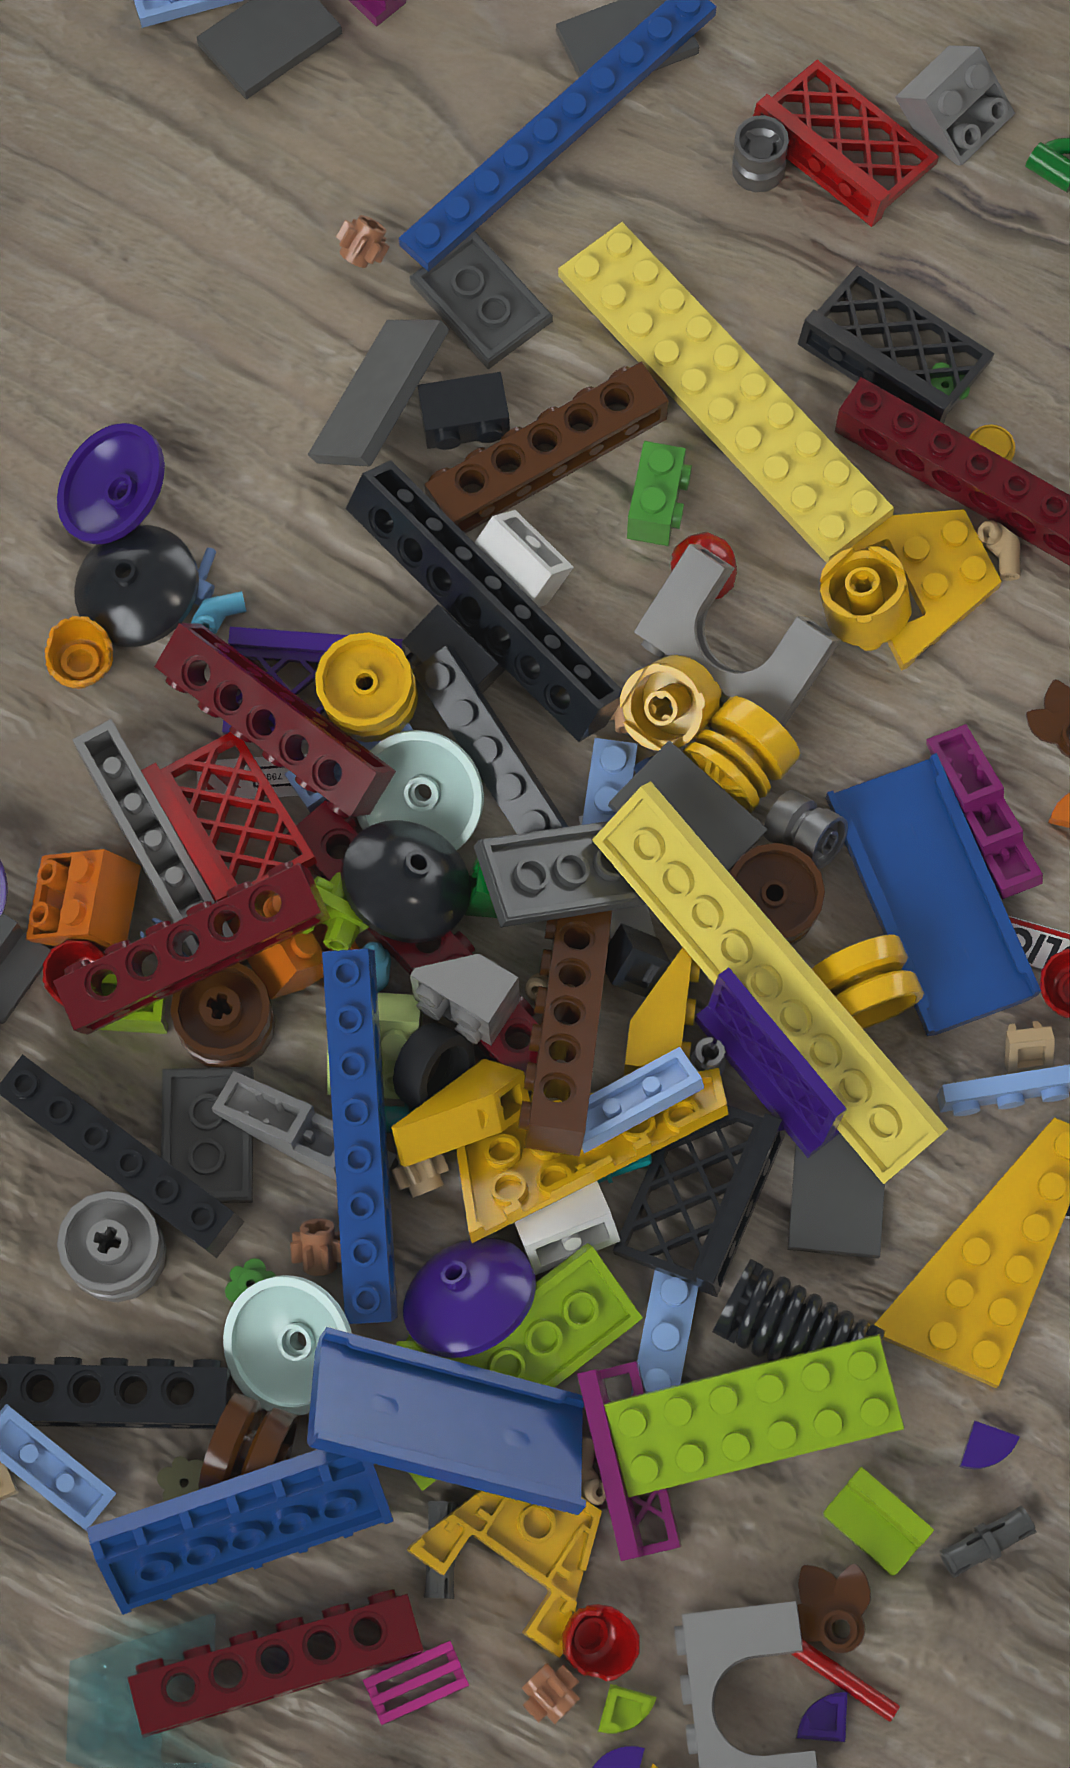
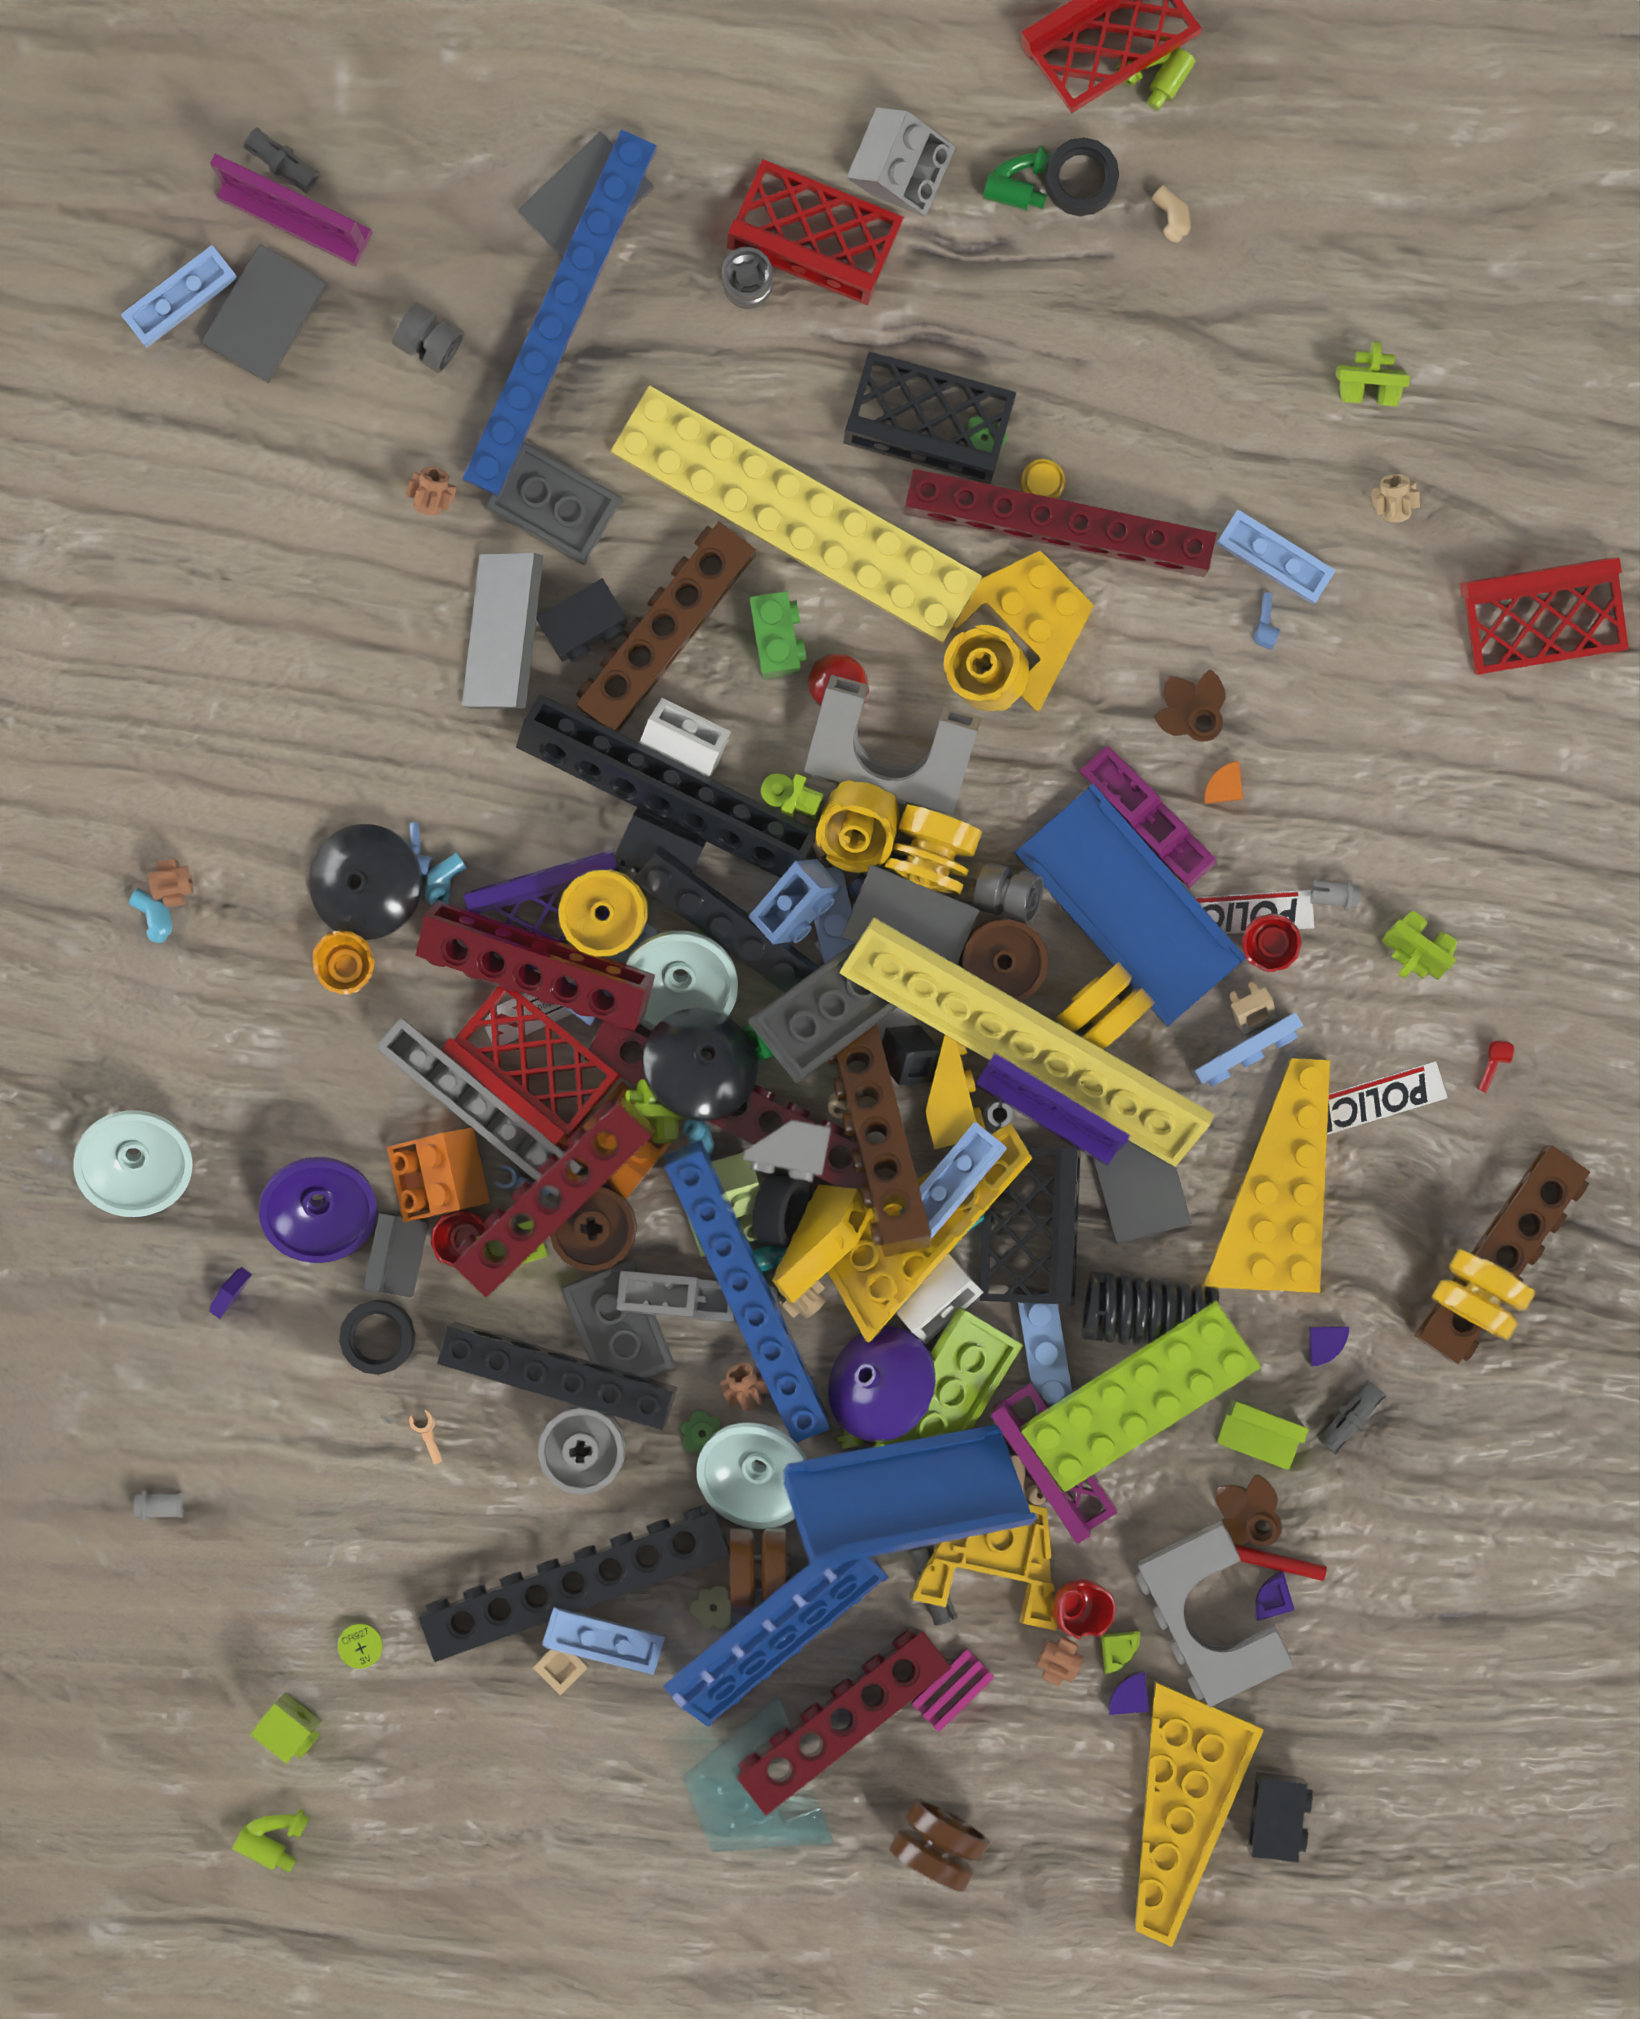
camera: 25 degrees left, 15 degrees up
(110, 483) = (293, 803): dark purple dish -> none
(419, 103) = (427, 337): none -> flat silver wheel
(573, 753) = (795, 902): none -> medium blue brick
(612, 649) = (792, 796): none -> lime hips
(1004, 546) = (1085, 570): tan arm -> none

